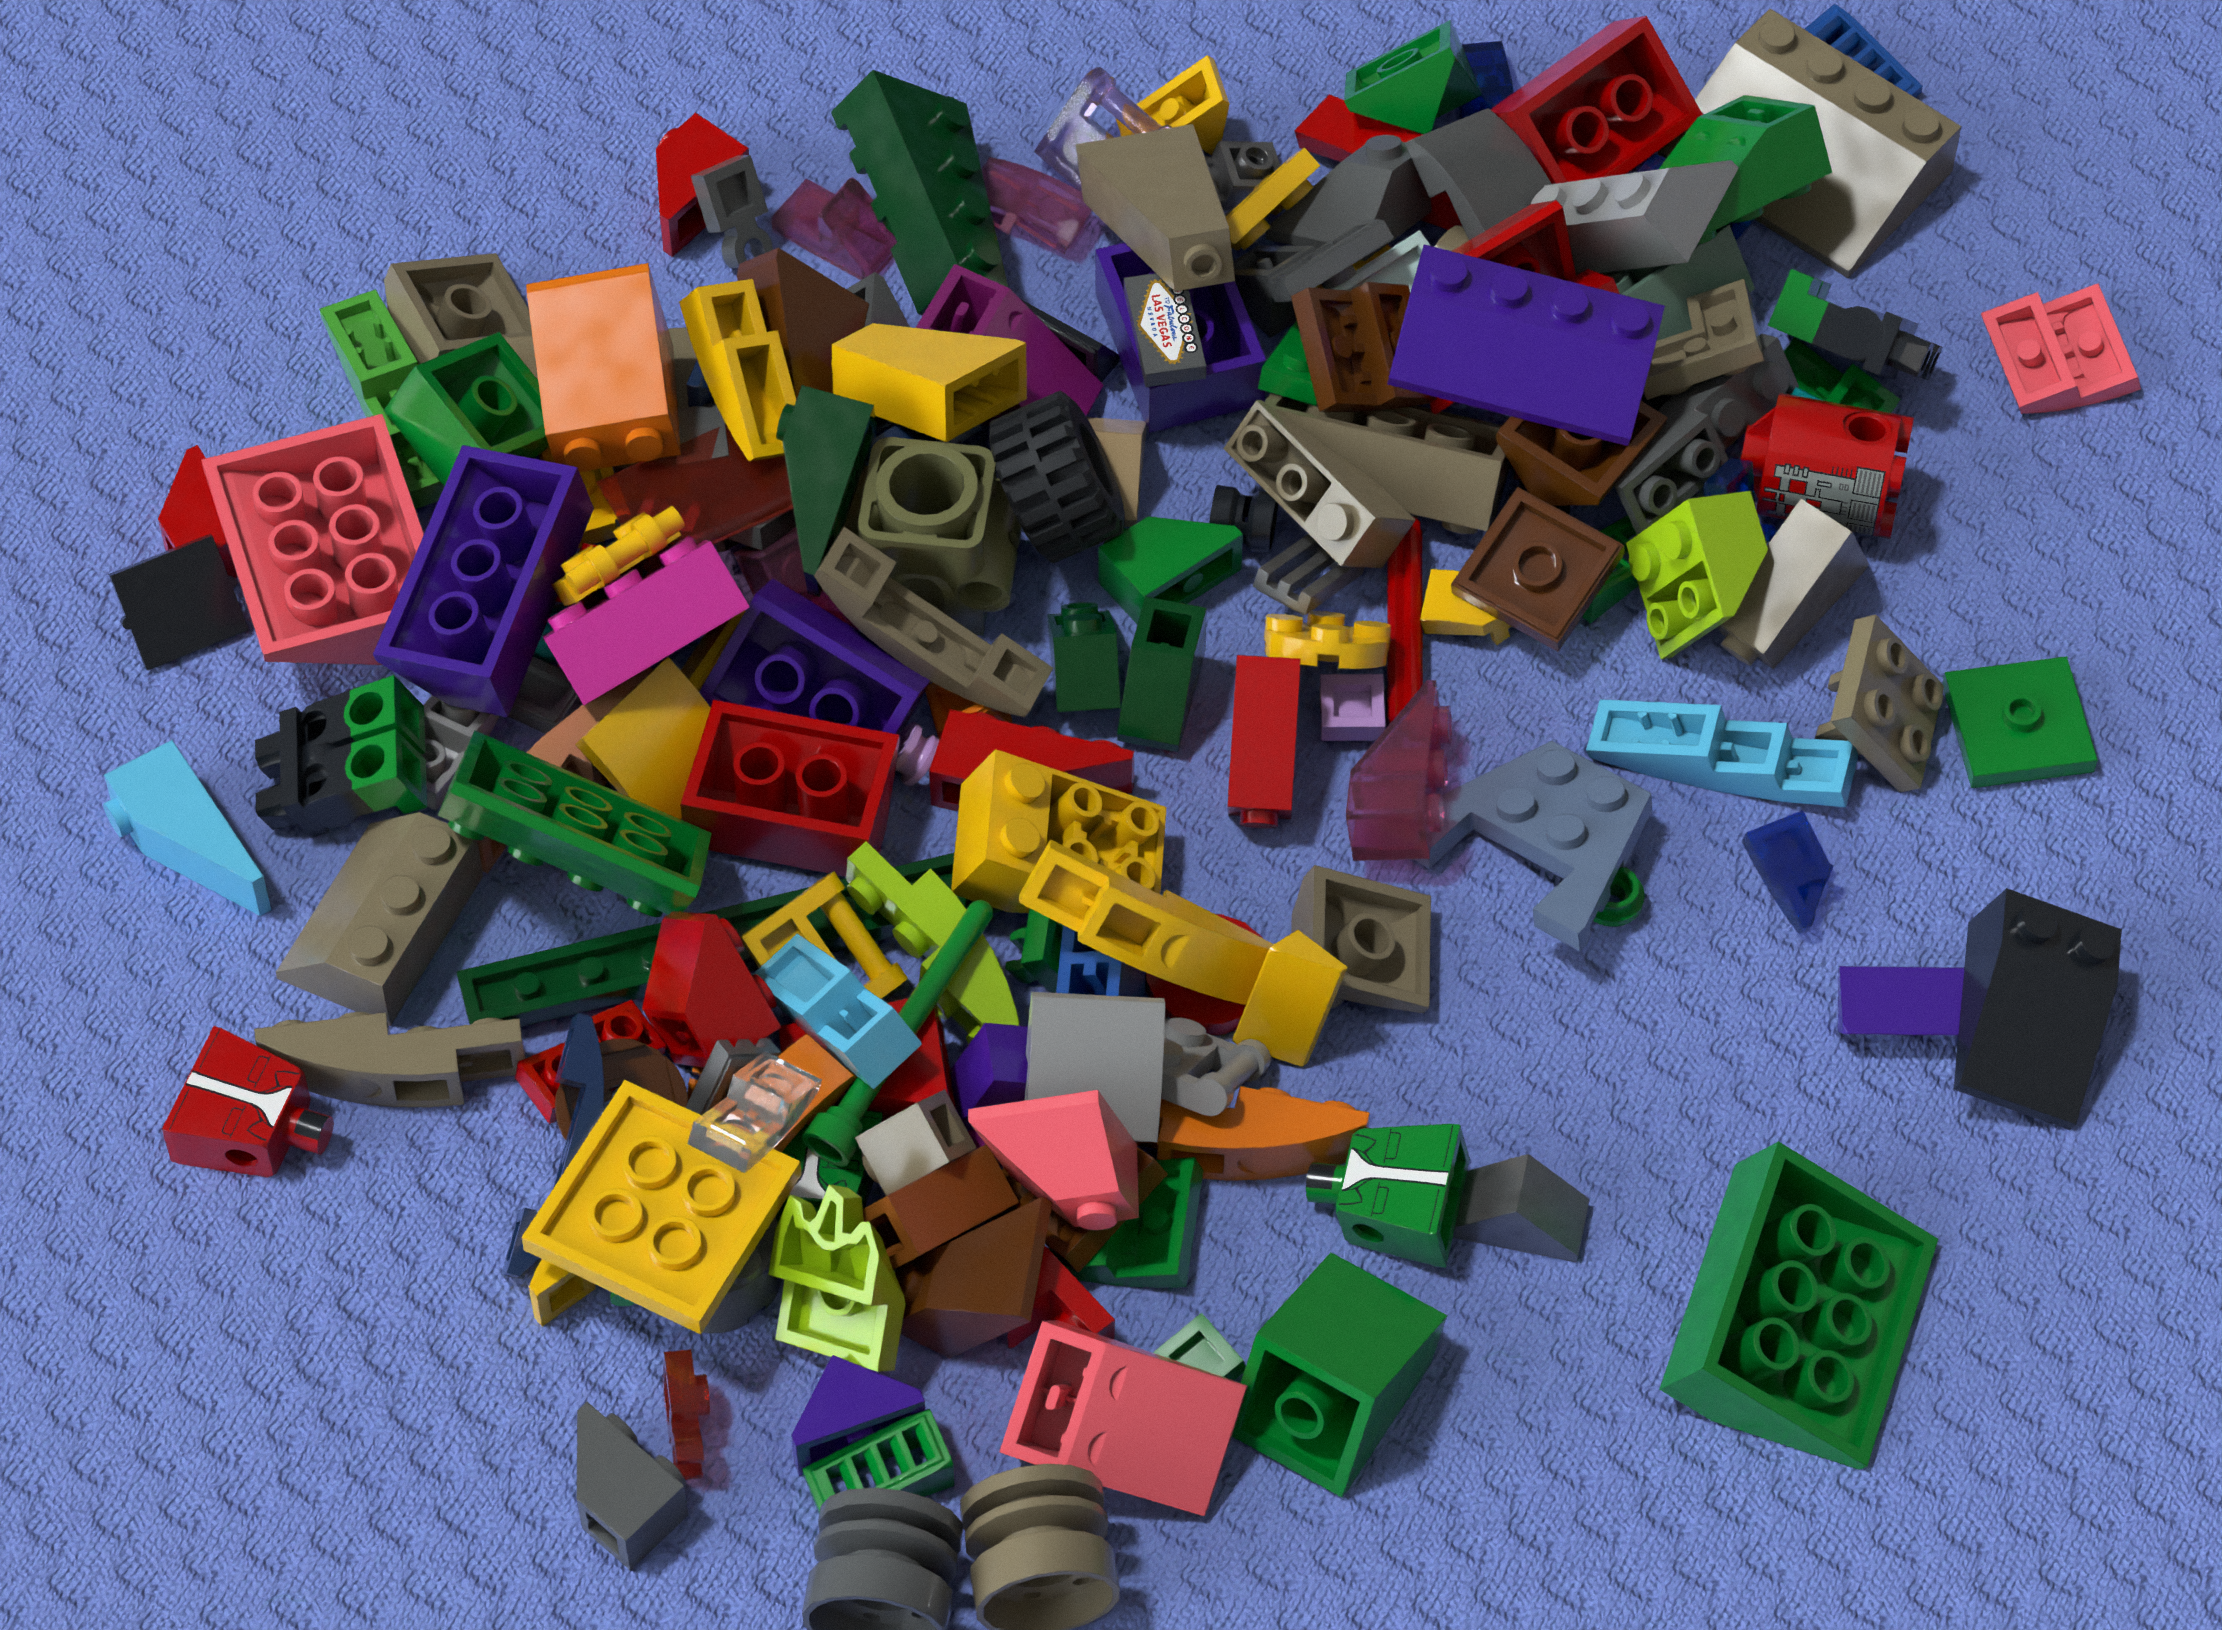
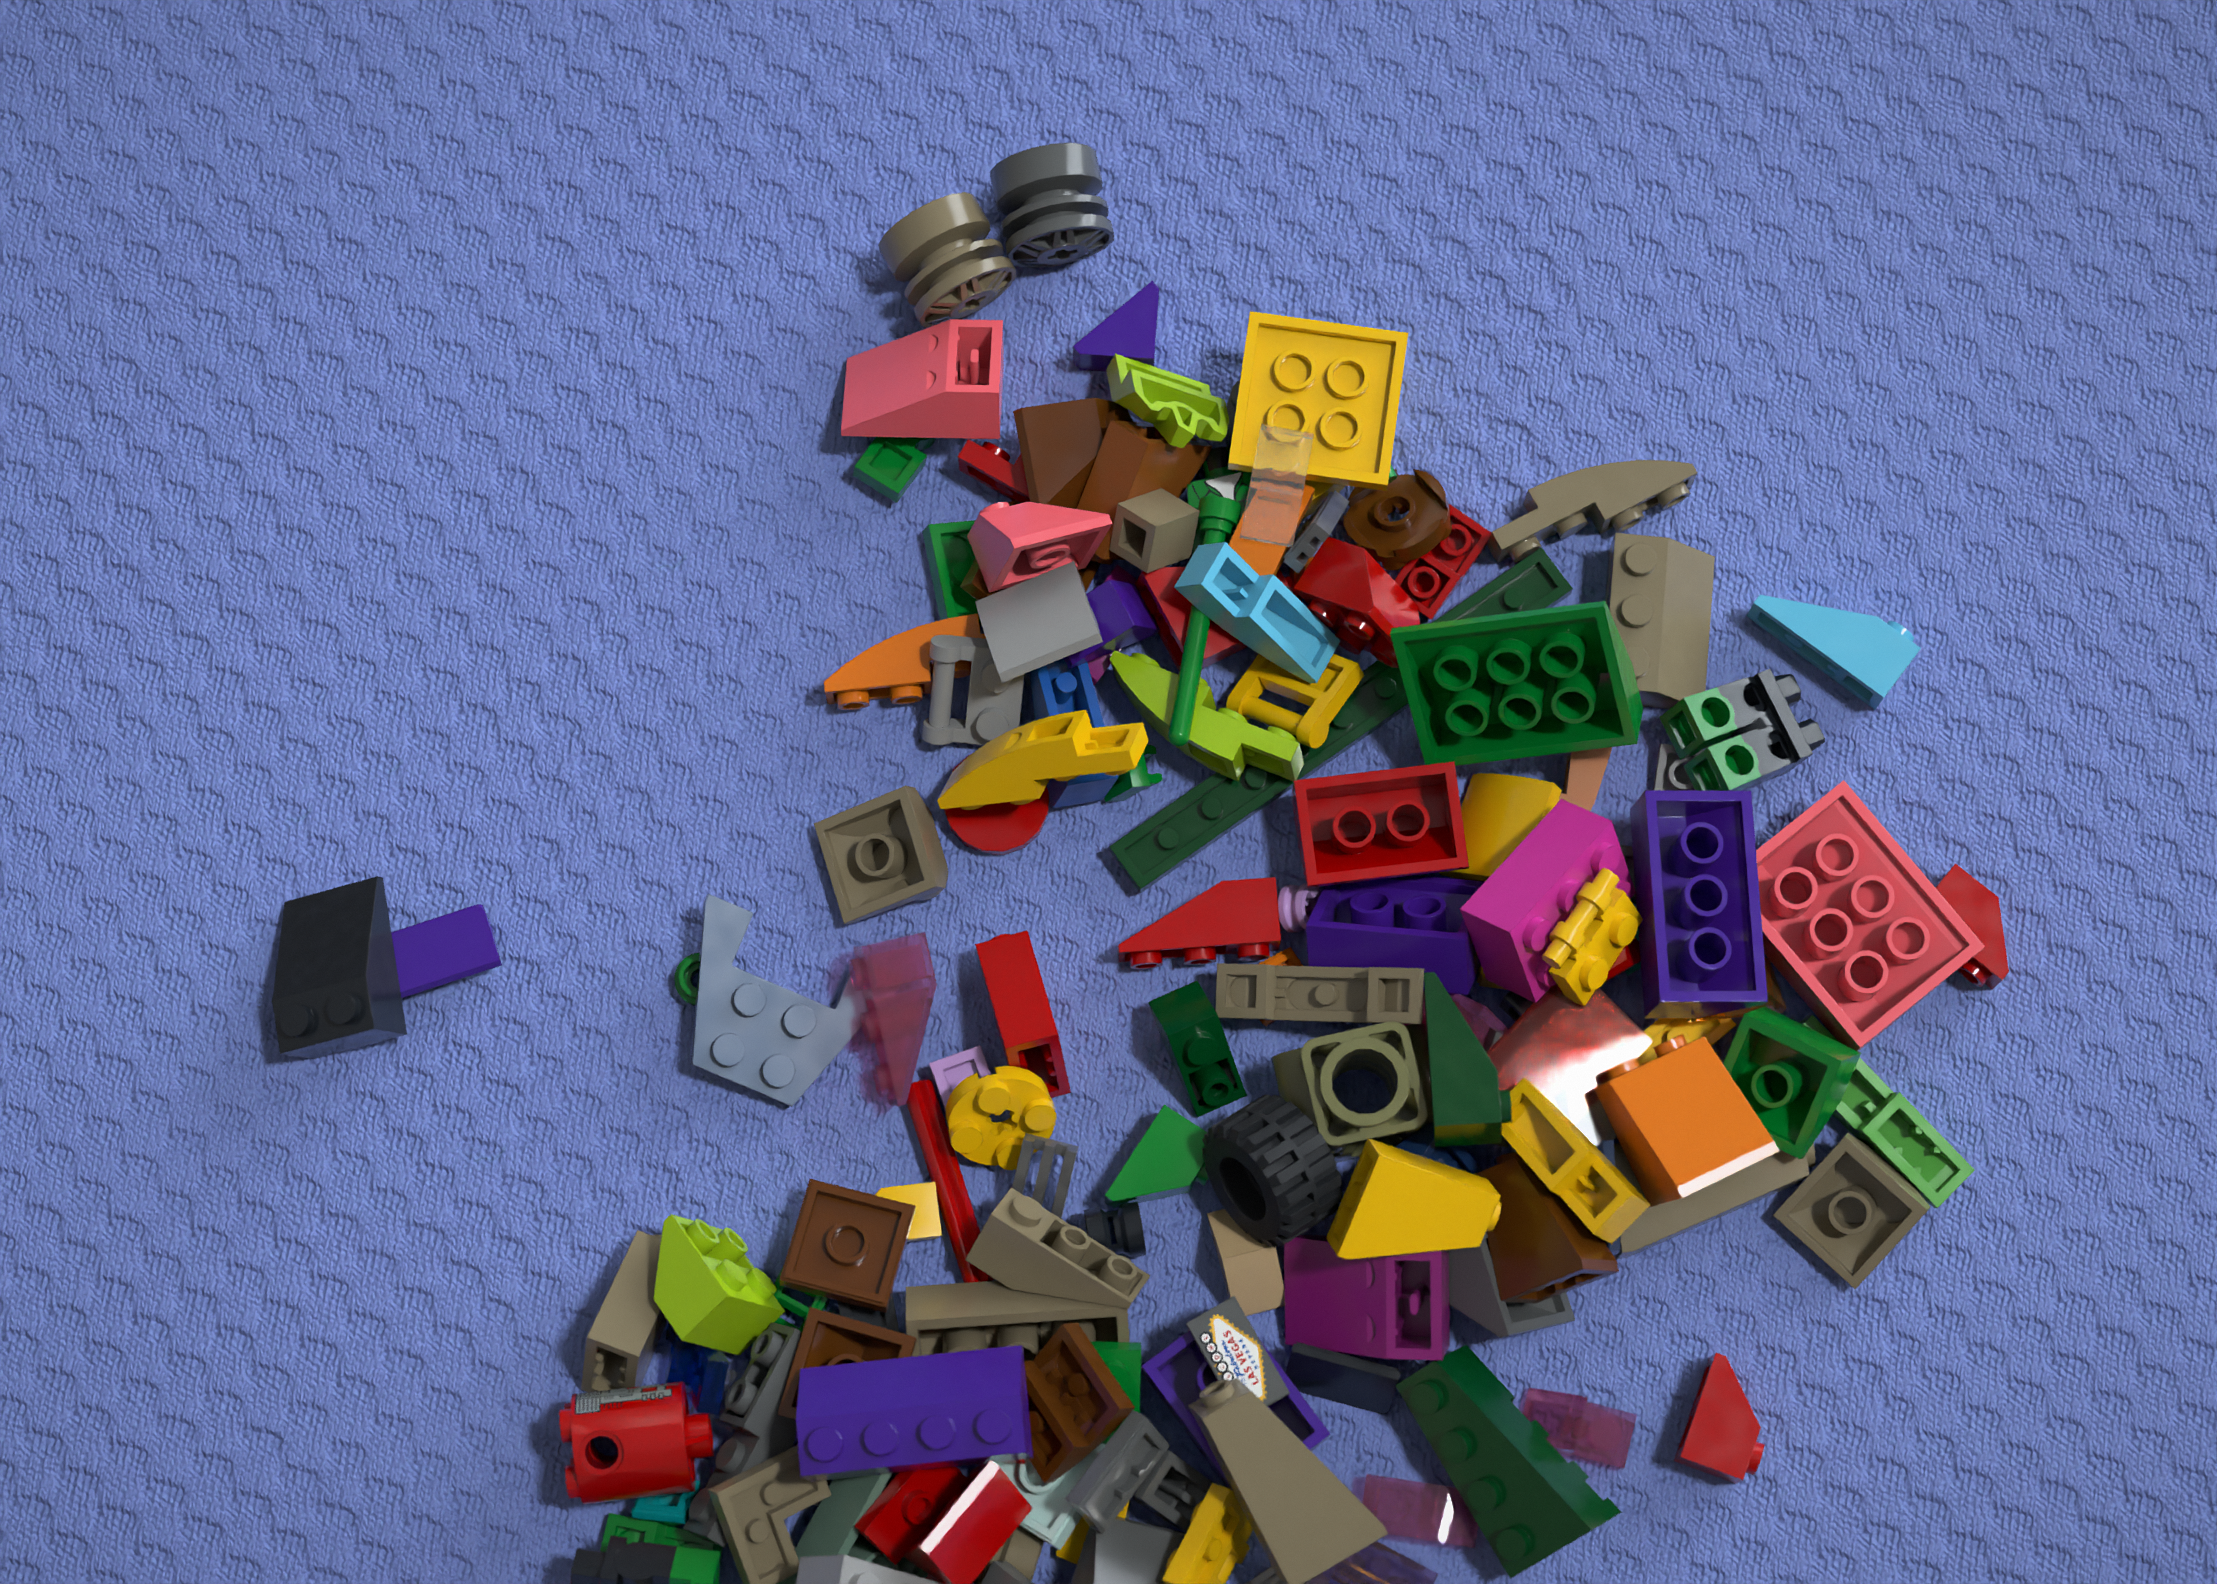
camera: 160 degrees right, 20 degrees up
(178, 602) = (1950, 836): black piece -> none
(242, 1110) = (1679, 421): red torso -> none
(579, 1068) = (1417, 404): dark blue slope -> none
(622, 1491) = (1269, 224): dark grey slope -> none
(684, 1400) = (1246, 289): clear red plate -> none
(729, 203) = (1668, 1391): dark grey plate -> none
(892, 1441) = (1050, 317): green slope -> none
(1018, 805) = (1146, 842): yellow slope -> none
(1162, 673) = (1125, 1046): dark green slope -> none
(1291, 998) = (917, 770): yellow slope -> none
(1335, 1372) = (782, 491): green slope -> none
(1397, 1189) = (786, 647): green torso -> none
(1522, 1209) = (692, 674): flat silver slope -> none
(1728, 756) = (650, 1143): medium azure slope -> none
(1790, 866) = (565, 1059): clear blue slope -> none
(1799, 1309) = (456, 658): green slope -> none
(1885, 704) = (524, 1216): dark tan plate -> none
(2019, 722) = (415, 1265): green plate -> none

